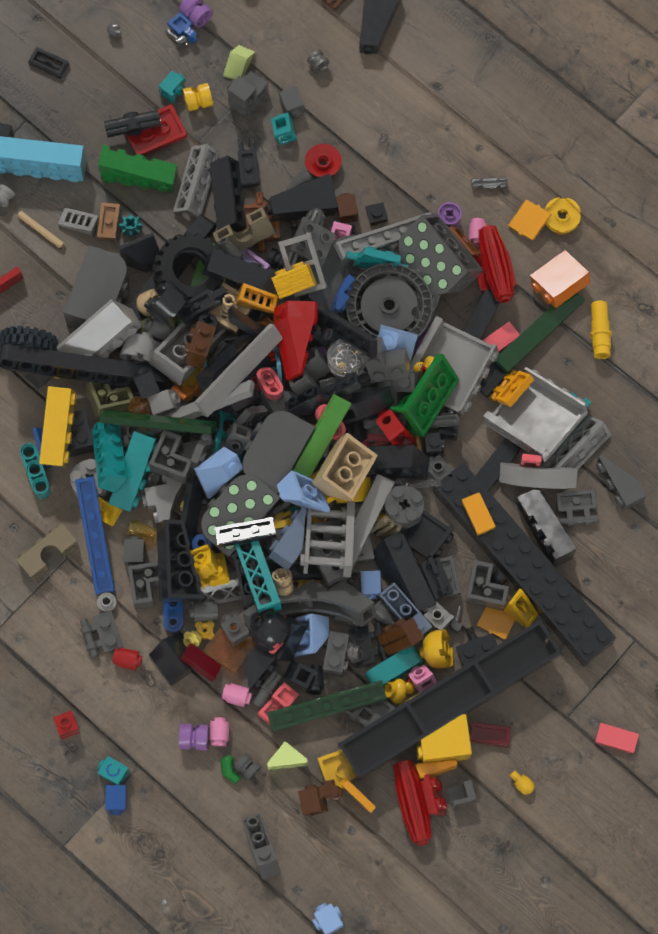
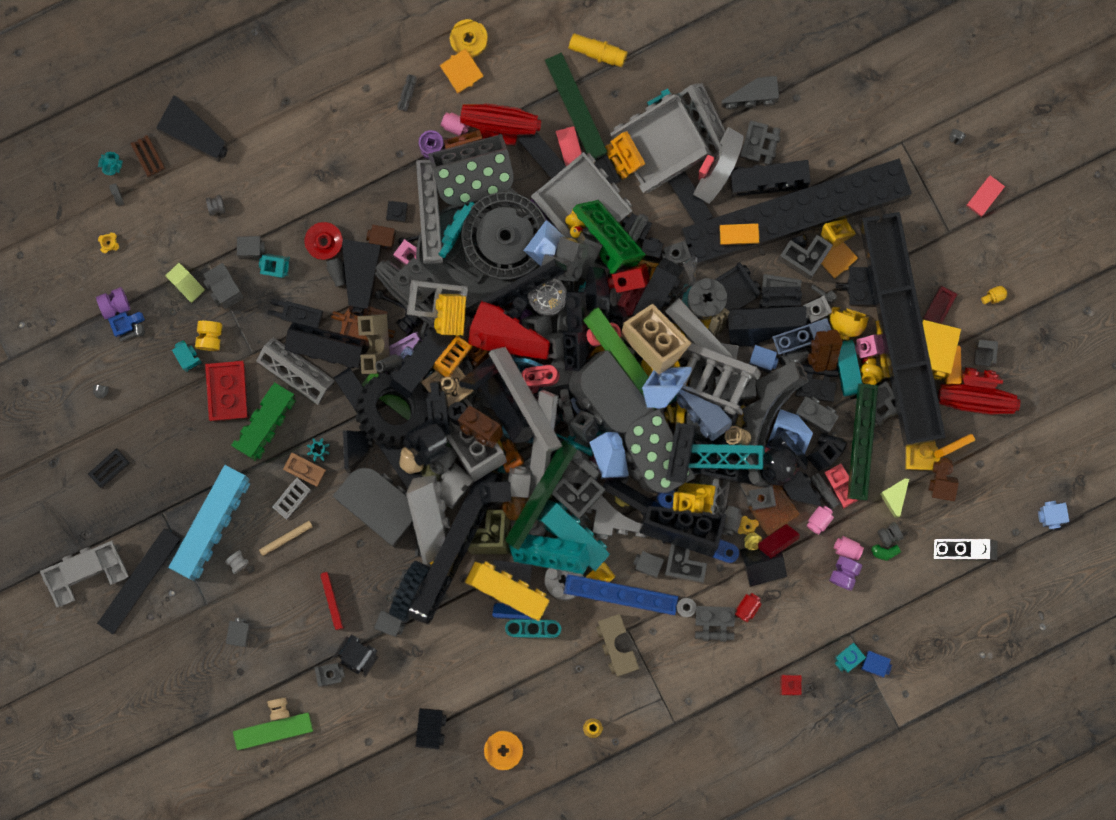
camera: 65 degrees left, 10 degrees up
(132, 123) = (214, 409): black piece -> none
(141, 530) = (629, 551): clear yellow cone -> none
(340, 298) = (480, 279): blue slope -> none
(355, 653) = (825, 397): flat silver plate -> none
(560, 279) = (534, 67): brick -> none

